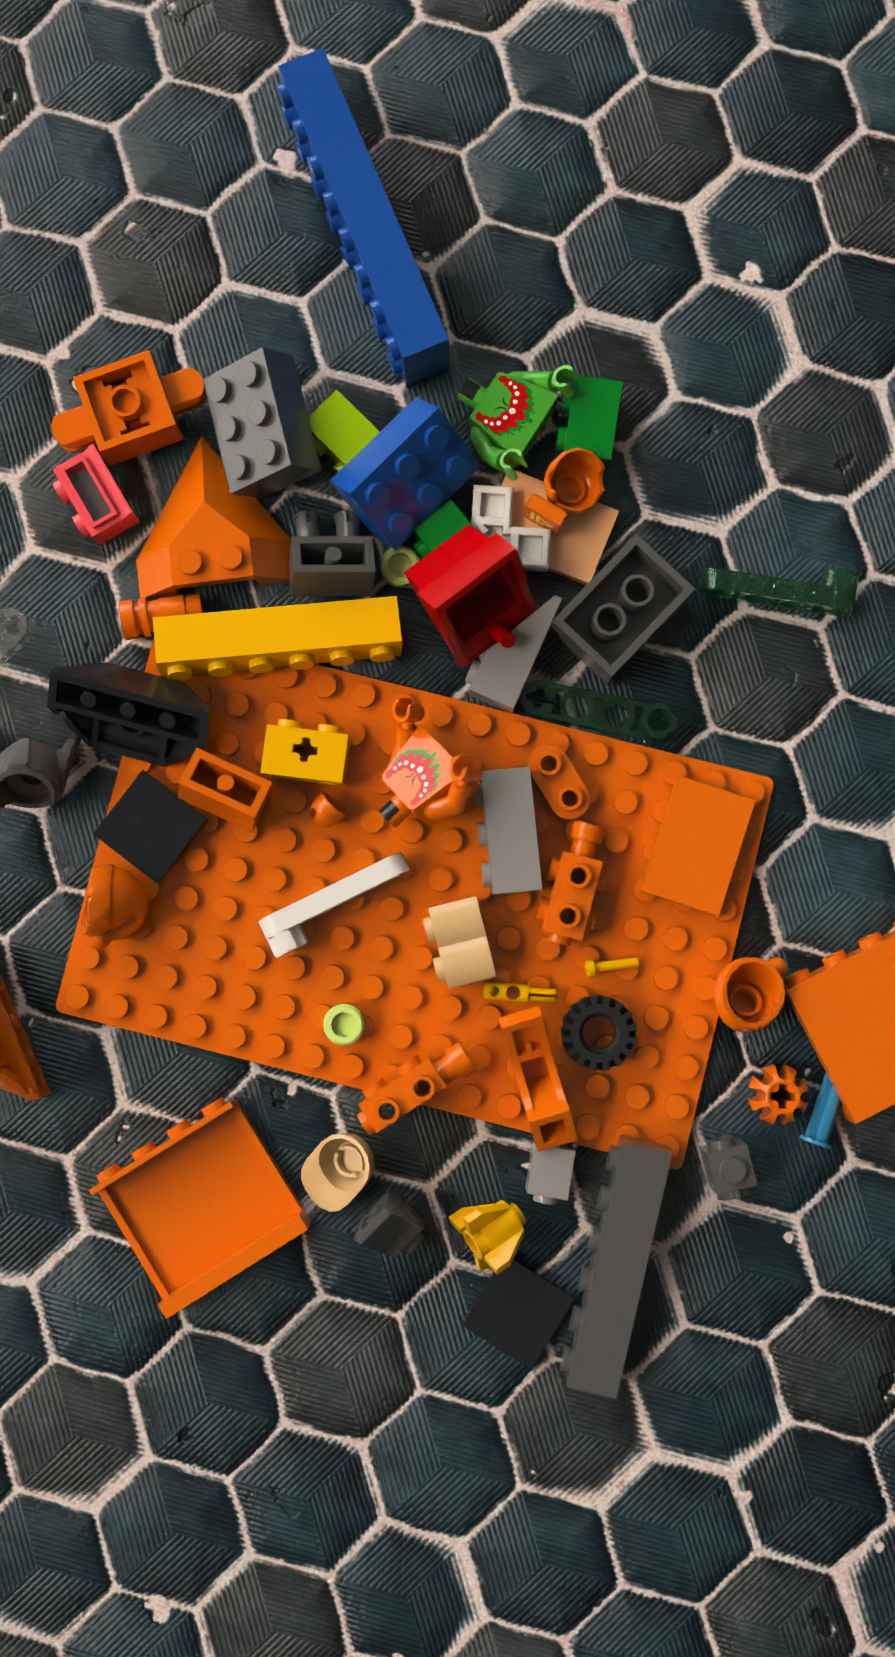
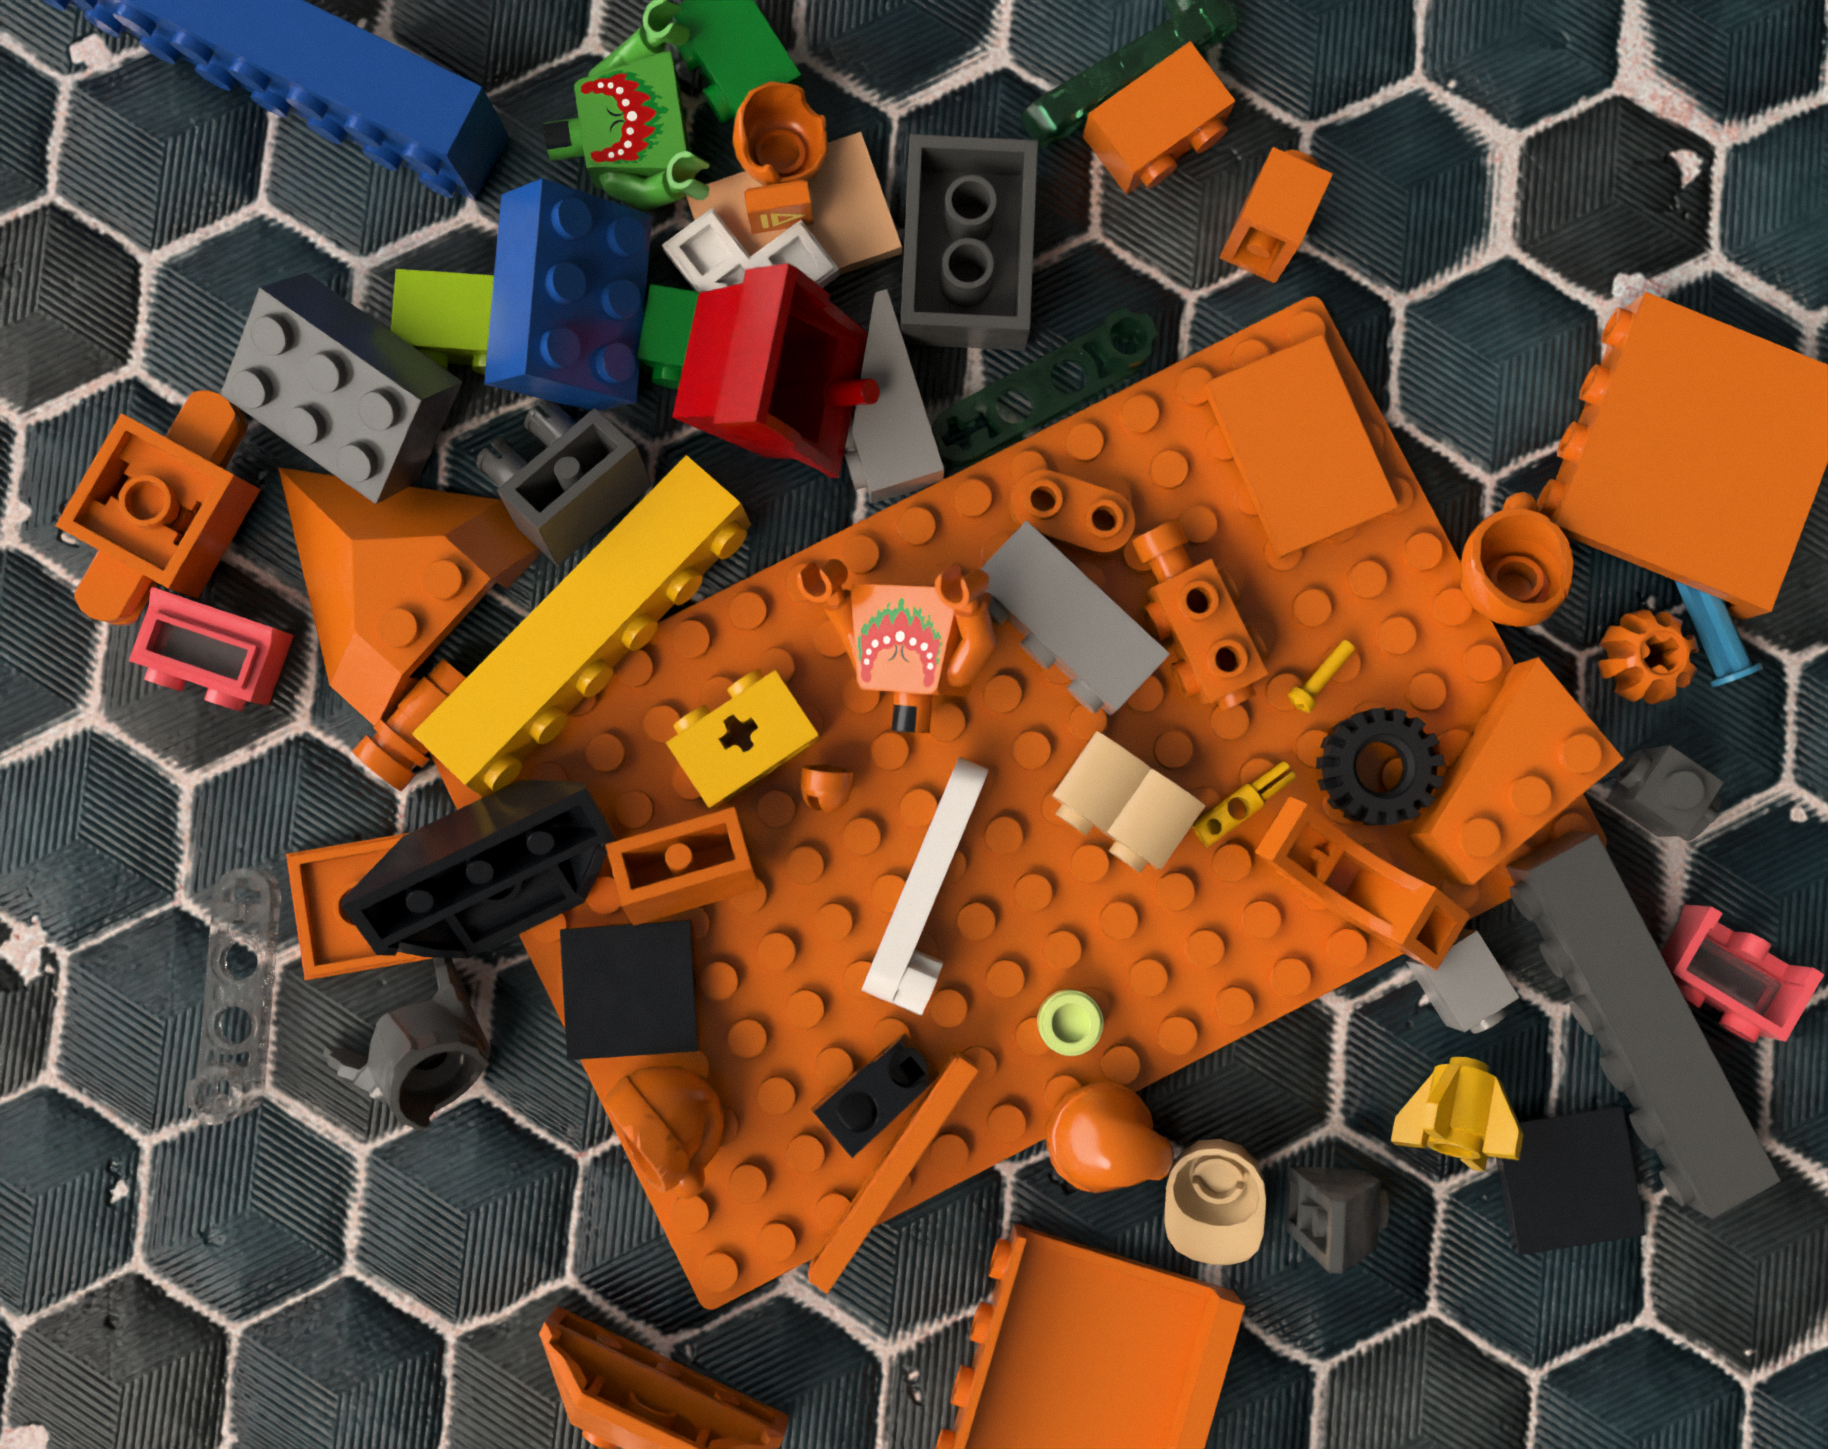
camera: 50 degrees left, 0 degrees up
(49, 651) = (326, 934): none -> orange tile
(198, 1018) = (891, 1171): none -> orange tile
(221, 976) = (875, 1094): none -> black leg
(312, 1094) = (1105, 1139): none -> orange piece
(395, 563) = (652, 422): yellowish green tile -> none
(402, 1090) = (1209, 1038): orange brick -> none
(659, 1093) = (1514, 776): none -> orange wedge
(685, 1284) = (1737, 976): none -> coral window
(769, 628) = (1159, 120): none -> orange brick
(782, 722) = (1276, 213): none -> orange brick

